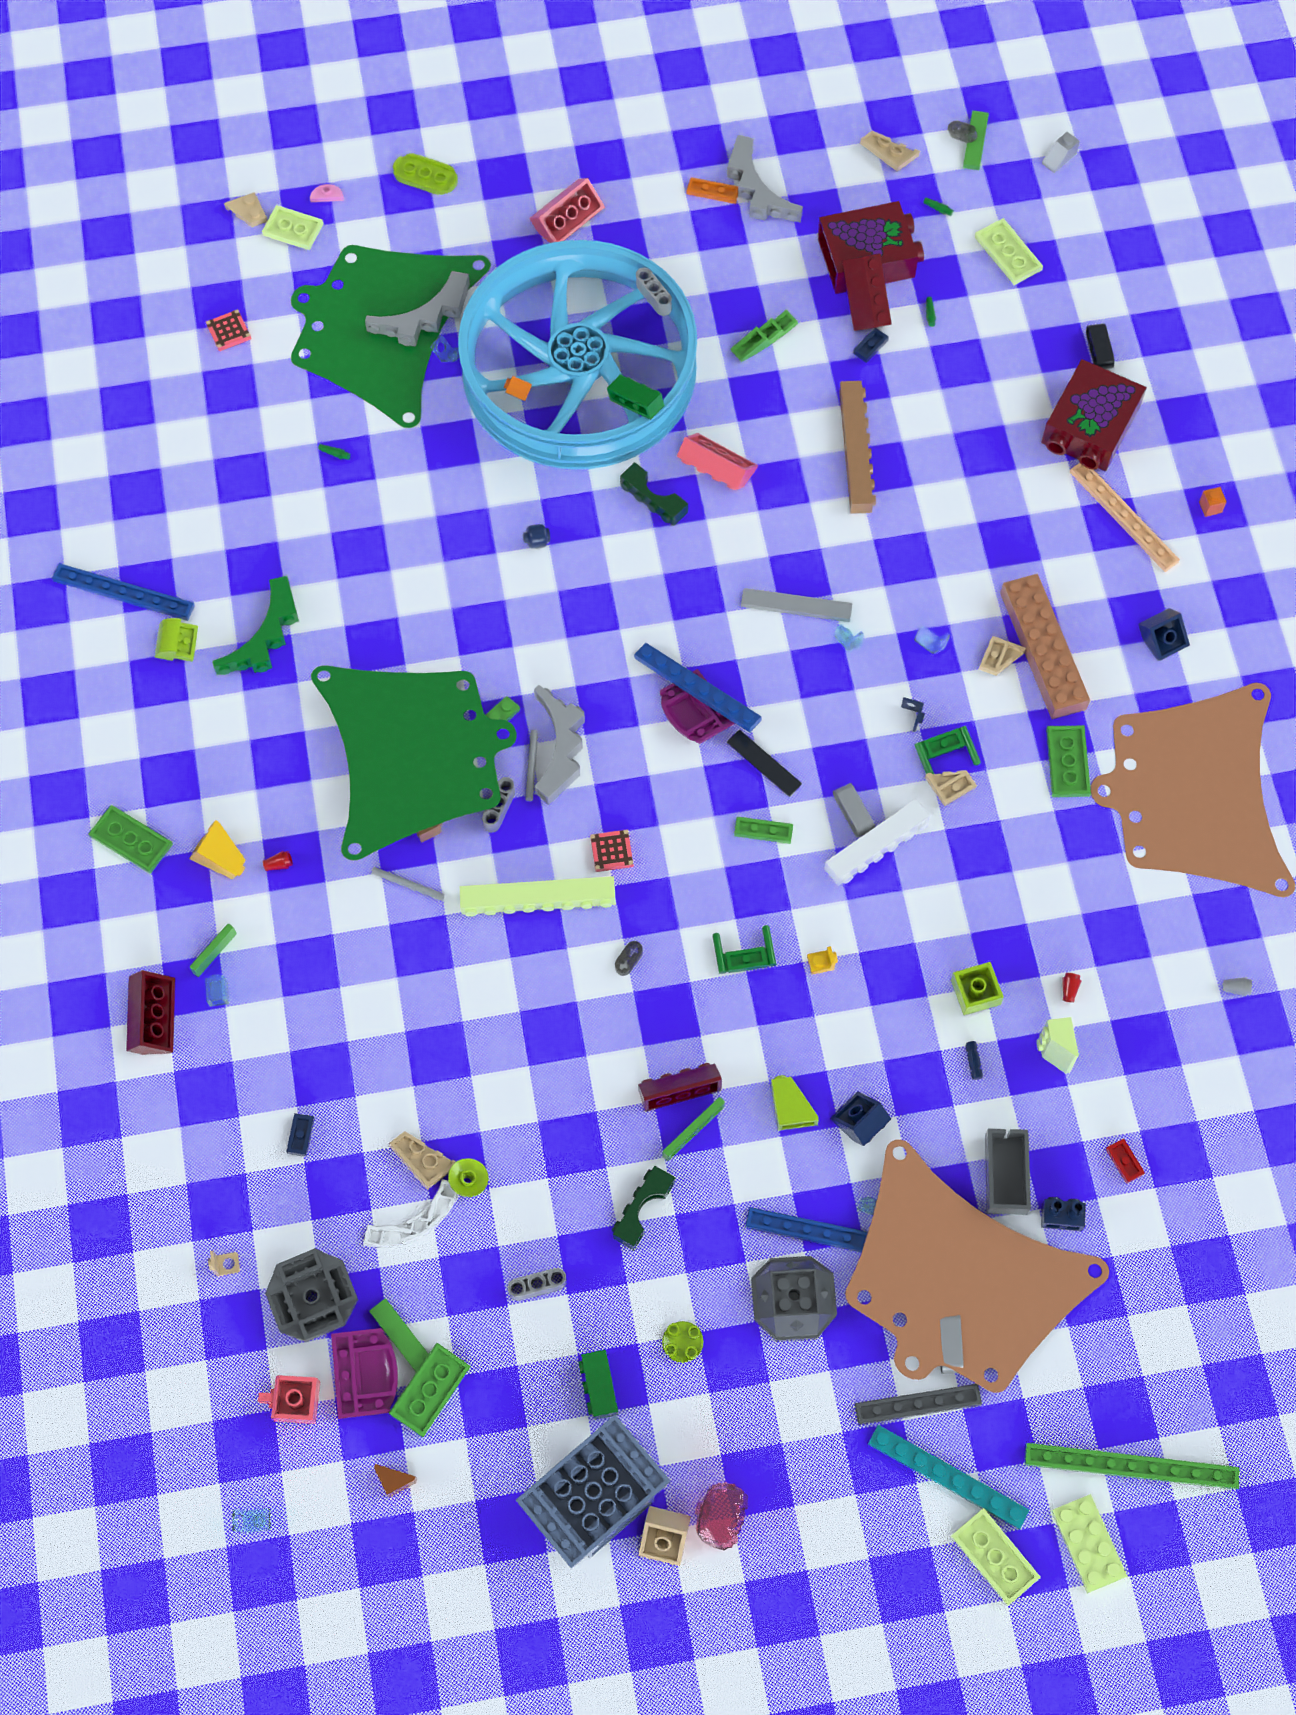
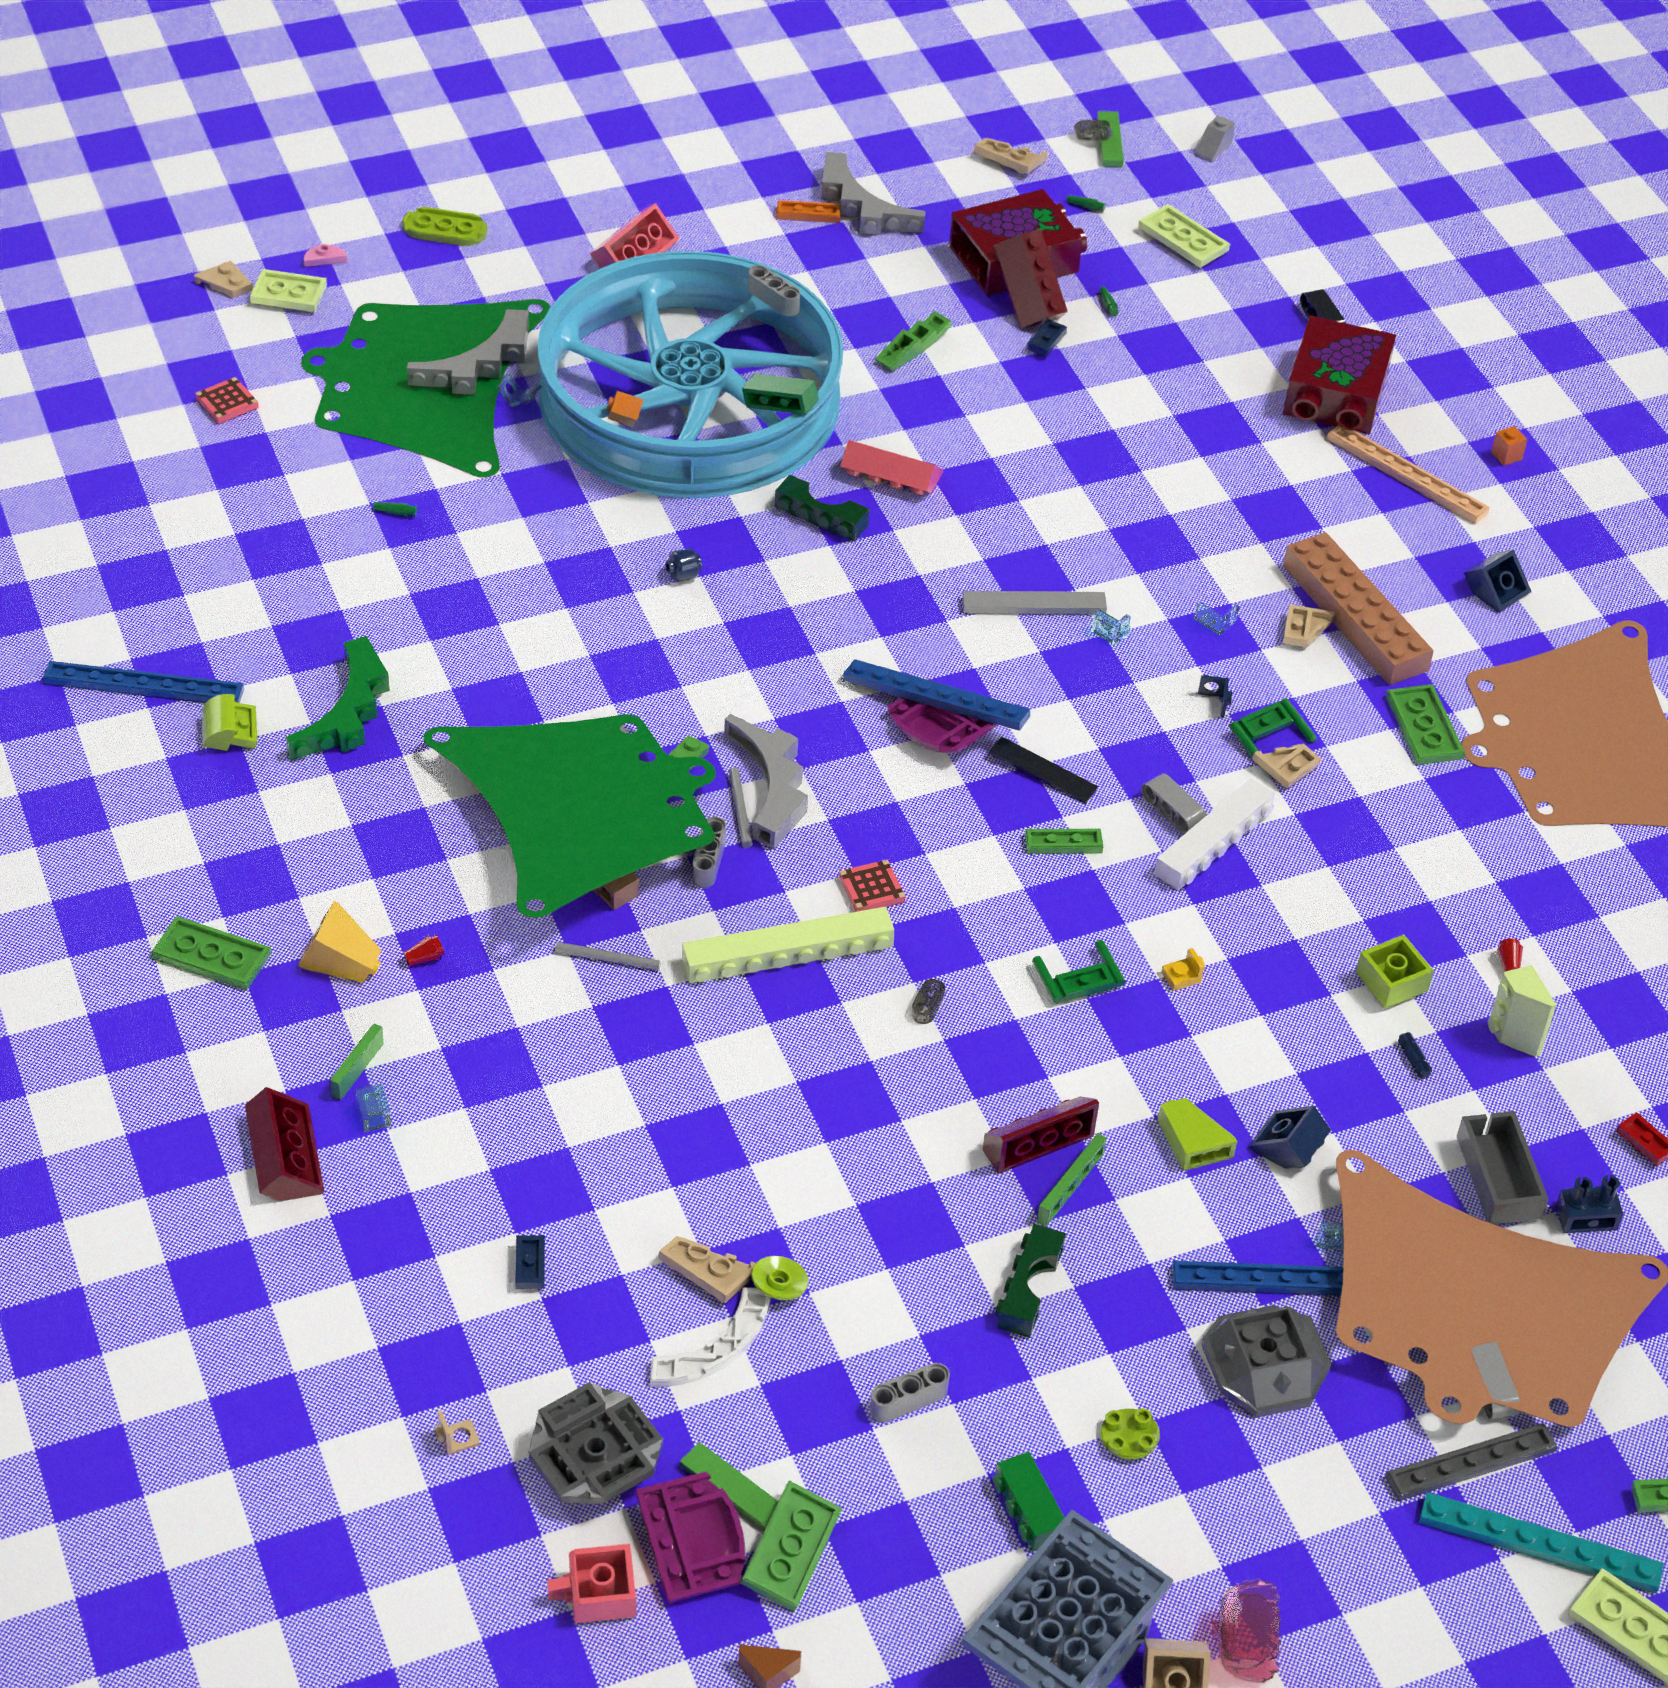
camera: 15 degrees left, 20 degrees down
(856, 447) = (1061, 437): medium nougat brick -> none

